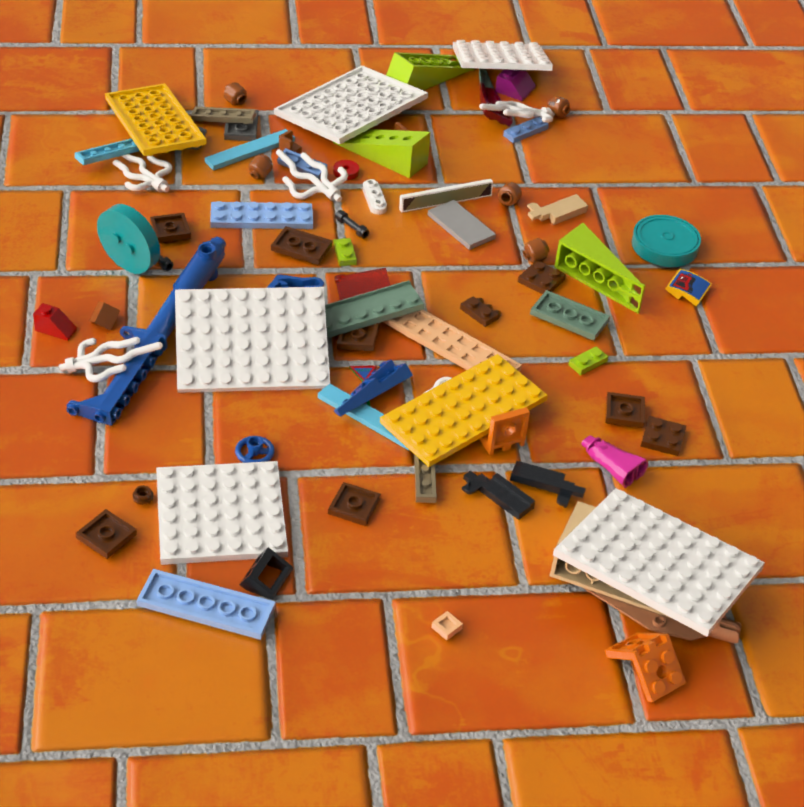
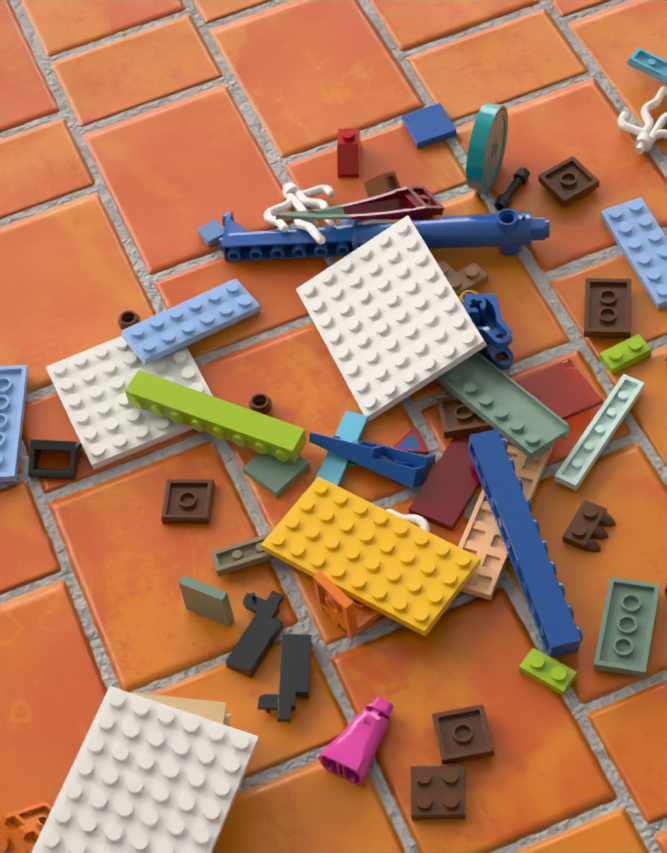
camera: 85 degrees right, 10 degrees up
(54, 278) = (429, 125): none -> blue tile
(77, 423) = (211, 232): none -> medium blue tile
(106, 533) = (64, 313): reddish brown plate -> none
(137, 312) = (396, 204): none -> dark red plate
(175, 454) = (190, 321): none -> light blue plate
(255, 447) = (232, 382): blue piece -> none
(282, 438) = (260, 399): none -> reddish brown plate
(289, 458) = (216, 417): none -> lime brick
(348, 446) = (274, 474): none -> sand green tile
(400, 273) = (599, 432): none -> light aqua plate
(423, 365) = (448, 487): none -> dark red tile
(447, 625) = (32, 637): light nougat plate -> none
(467, 504) = (206, 600): none -> tile
(489, 333) = (524, 545): none -> blue brick

